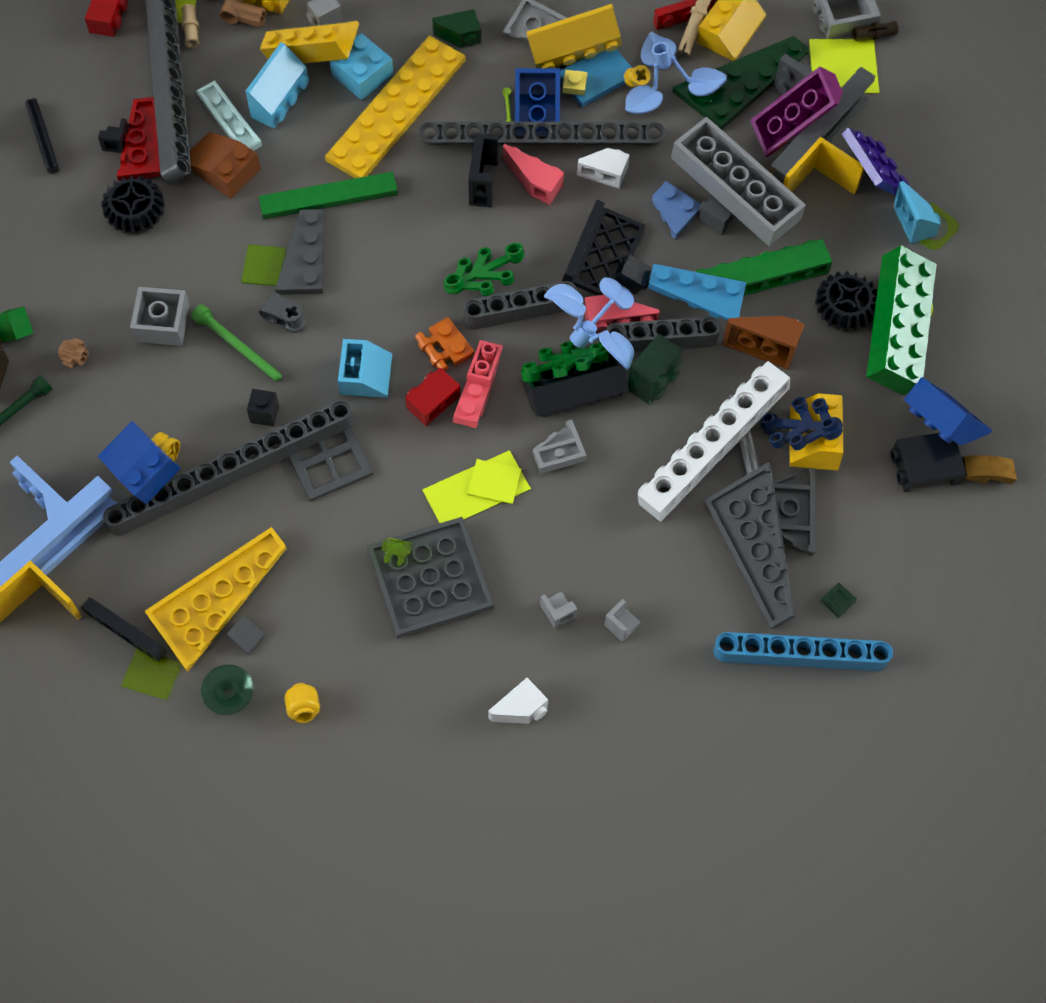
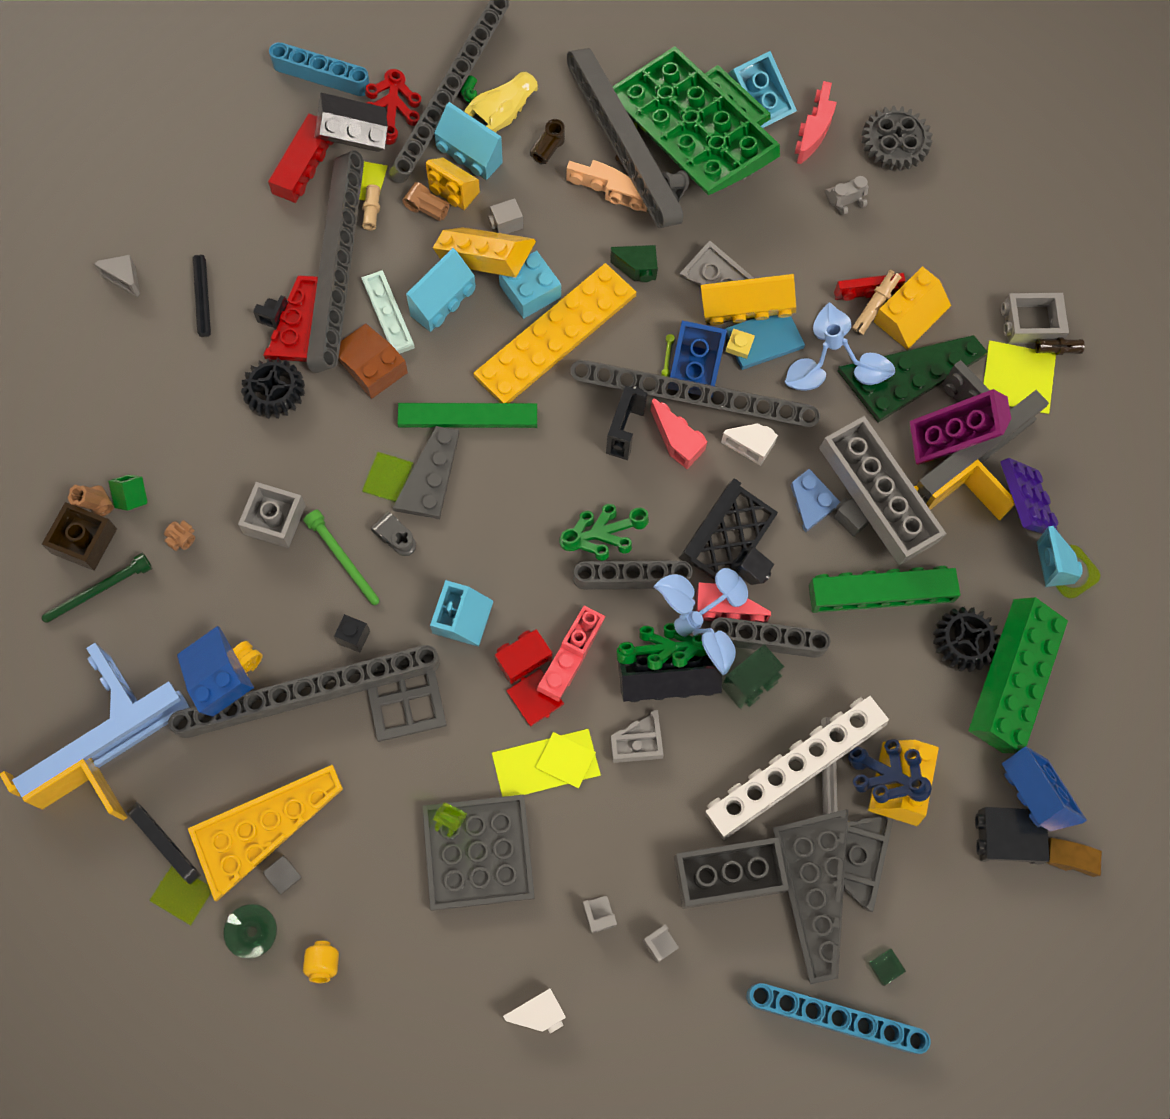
camera: 10 degrees right, 5 degrees up
(449, 340) = (555, 600): orange plate -> none
(450, 436) = (530, 702): none -> red piece
(631, 77) = (810, 348): yellow bush -> none
(673, 544) = (731, 873): none -> dark grey brick
(710, 293) = (827, 606): dark azure wing -> none
(765, 338) = (877, 667): dark orange slope -> none

